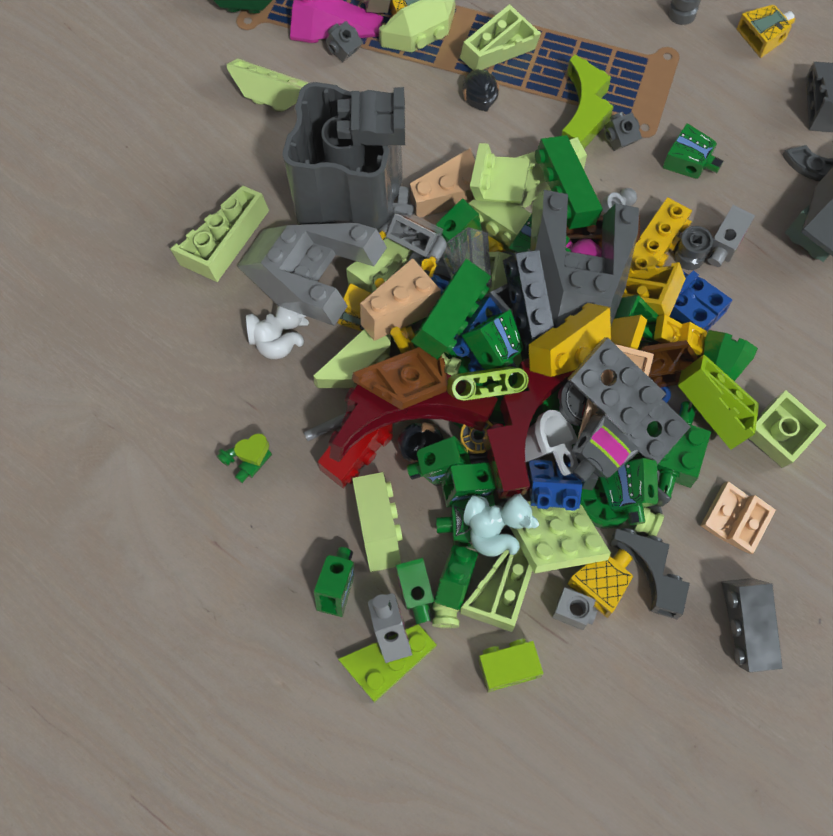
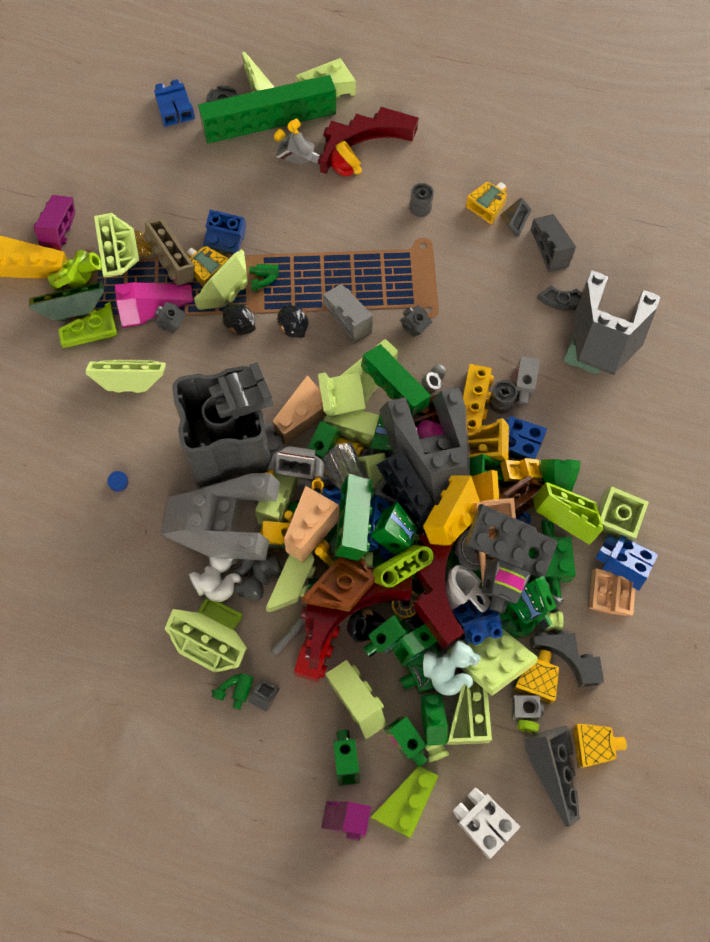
camera: 25 degrees left, 0 degrees up
(215, 194) = (117, 481): none -> blue tile
(222, 235) = (140, 514): yellowish green wedge -> none
(233, 392) = (205, 640): none -> yellowish green wedge
(252, 449) = (239, 681): lime tile -> none
(260, 29) = (94, 327): none -> lime wing
(265, 374) = (221, 613): none -> lime tile
(275, 478) = (263, 695): none -> dark grey slope
(310, 649) = (346, 818): none -> magenta wedge
(331, 342) = (262, 571): none -> dark grey animal
(385, 618) = (399, 774): light grey torso -> none
(420, 68) = (239, 319): none -> black hair
(467, 25) = (263, 270): none -> green plant
(469, 710) = (482, 815): none -> white hips
(500, 40) = (293, 276): yellowish green wedge -> none
(510, 665) = (498, 769): lime brick -> none
(548, 99) = (349, 313): none -> light grey wedge
(567, 630) = (528, 726): none -> lime tile
(580, 685) = (550, 758): none -> dark grey wedge
(592, 109) = (385, 311): lime arch -> none
(643, 685) = (596, 744): none -> yellow torso
(692, 154) = (473, 321): green torso -> none
(753, 624) = (653, 668): dark grey wedge -> none
(771, 484) = (627, 559): none -> blue hips
(795, 56) = (516, 216): none -> dark grey slope

